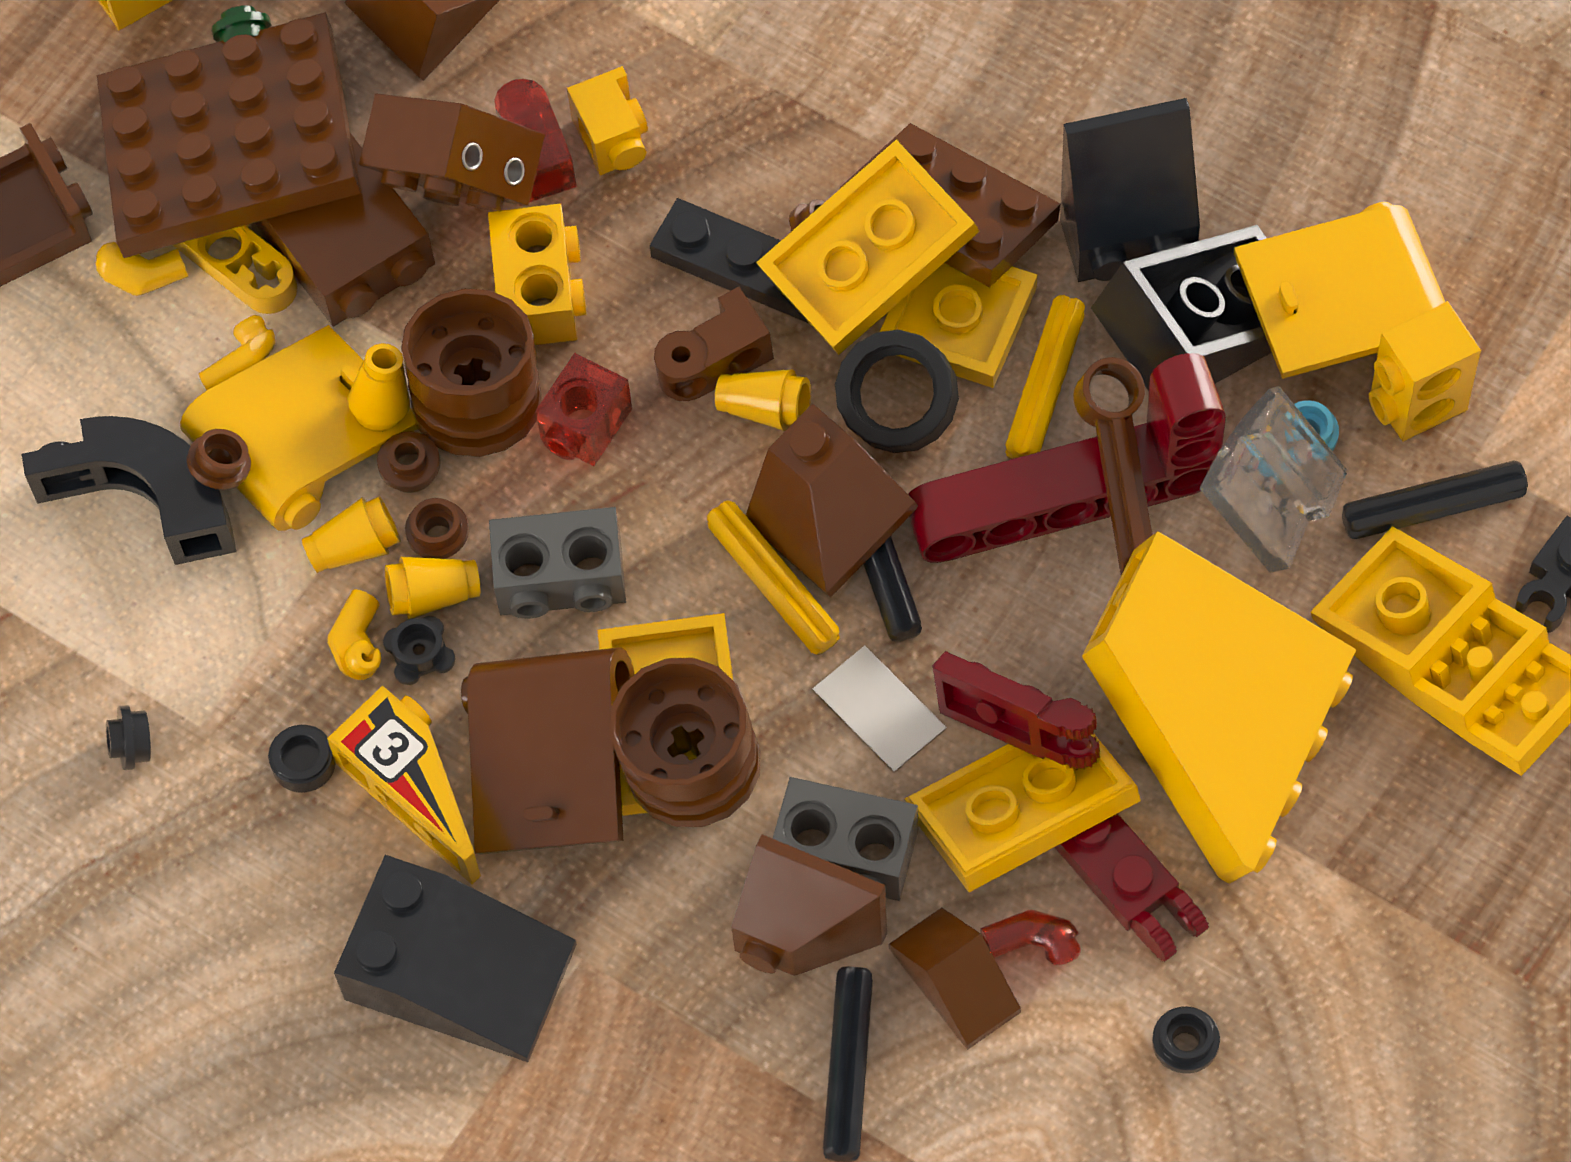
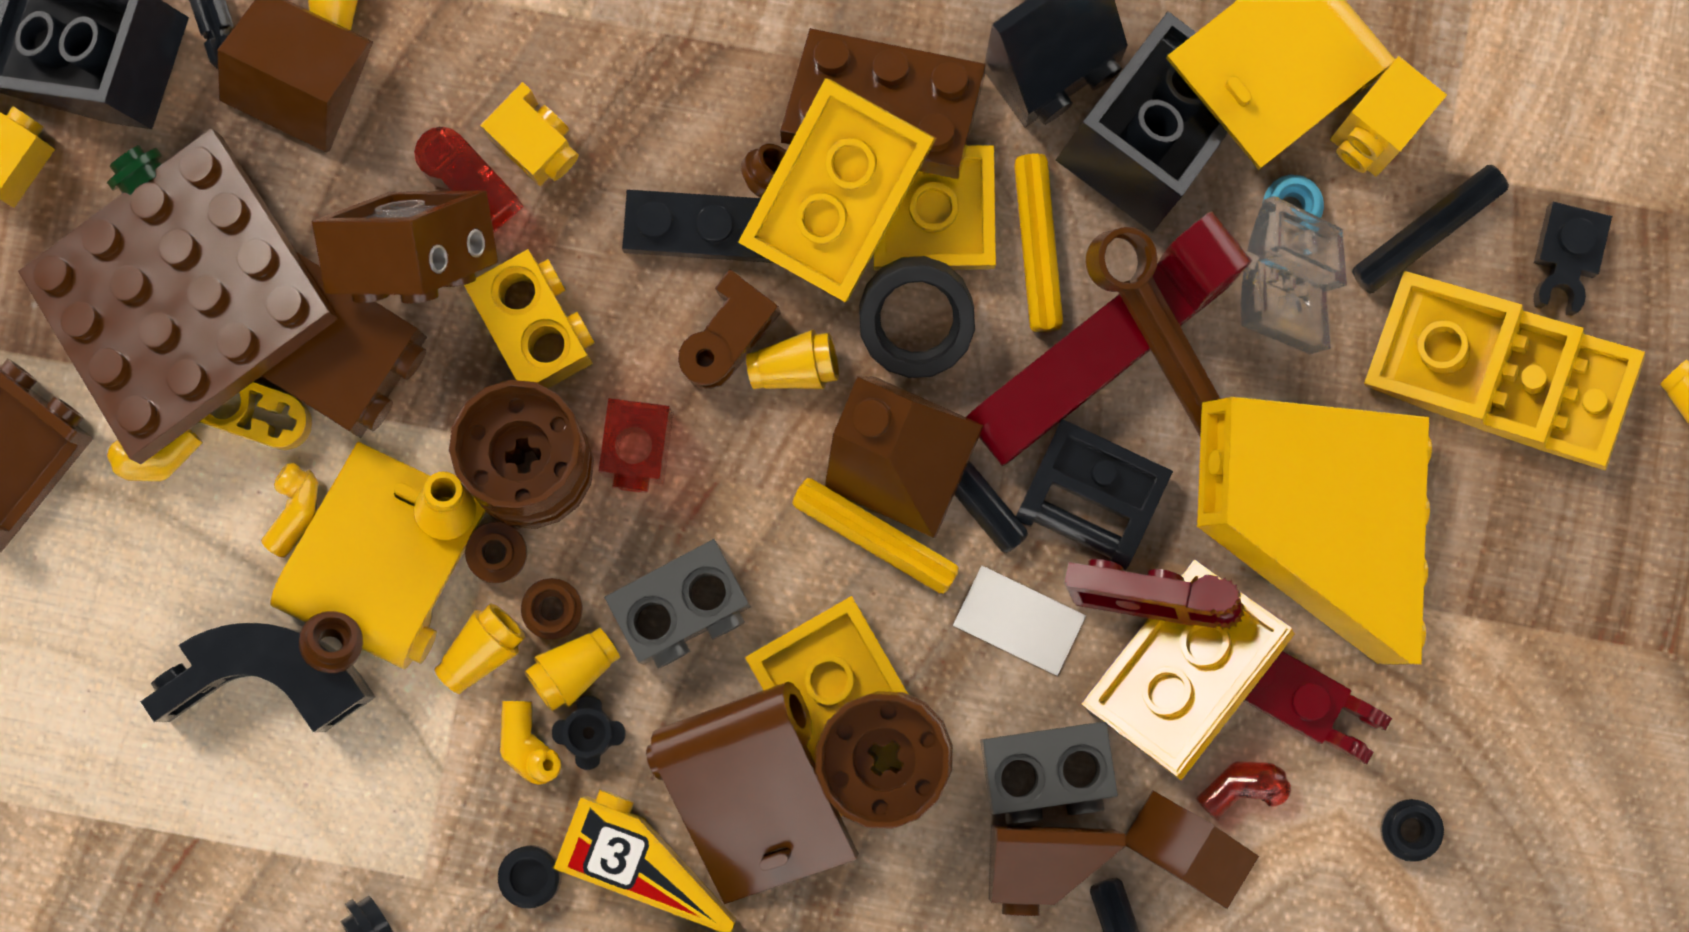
camera: 25 degrees left, 20 degrees up
(1013, 598) = (1101, 475): none -> black plate

